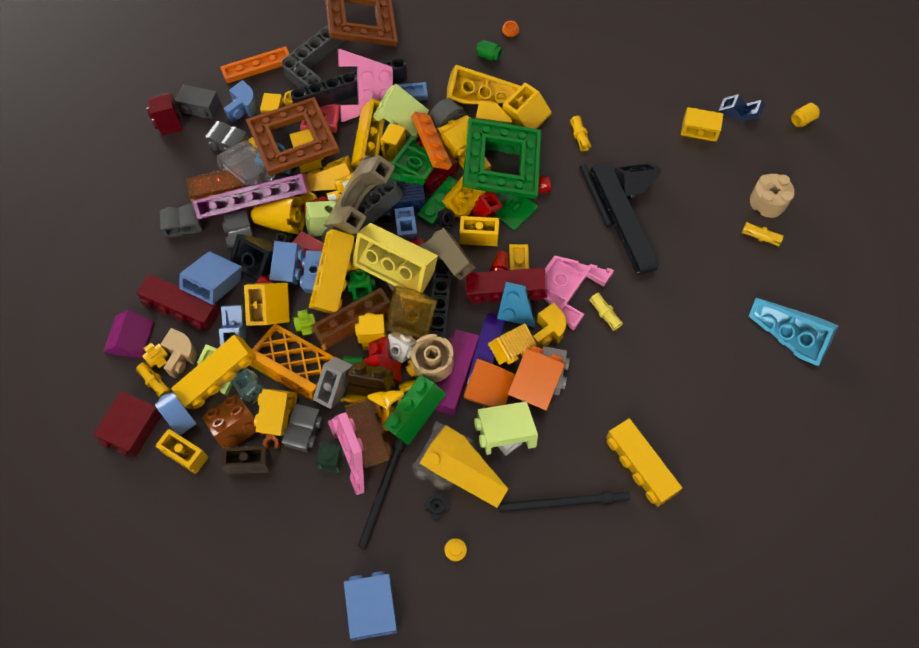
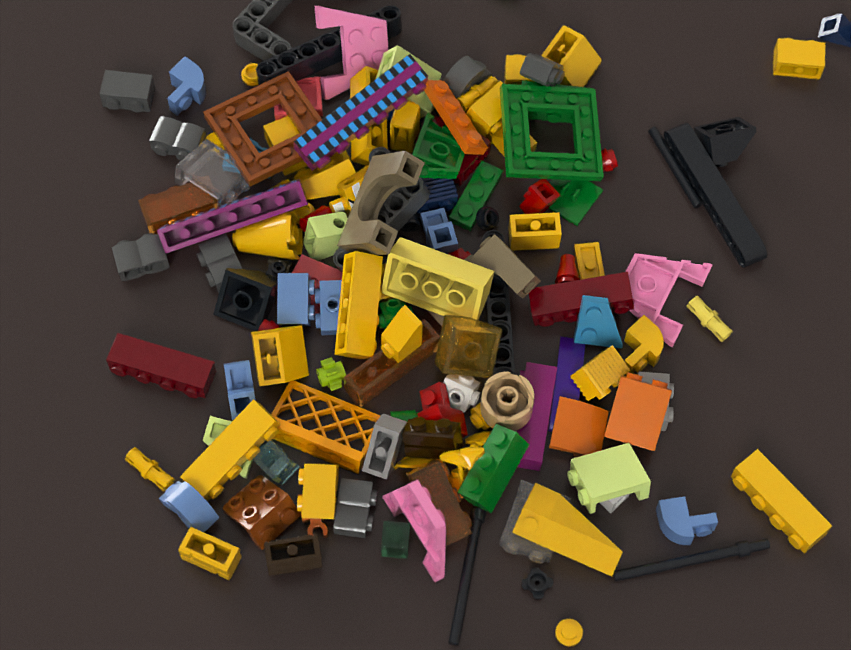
camera: 10 degrees left, 0 degrees up
(127, 424) = (130, 528): dark red brick -> none
(129, 335) = (103, 415): magenta slope -> none
(155, 355) = (146, 437): yellow gear -> none
(164, 113) = (87, 112): dark red brick -> none
(181, 351) = (177, 423): tan brick -> none
(210, 277) = (199, 329): medium blue brick -> none
(254, 65) = (193, 31): orange plate -> none
(271, 102) = (228, 85): yellow brick -> none
(358, 128) = (361, 112): none -> brick
(358, 297) = (402, 335): none -> yellow slope
(370, 328) = (419, 374): yellow brick -> none
(416, 90) = (418, 46): medium blue plate -> none
(461, 200) = (505, 192): yellow bracket -> none
(472, 86) = (495, 36): yellow wedge -> none
(501, 111) = (542, 70): none -> dark grey brick
(558, 473) = (678, 525): none -> medium blue brick
(580, 133) = (643, 85): yellow pin -> none

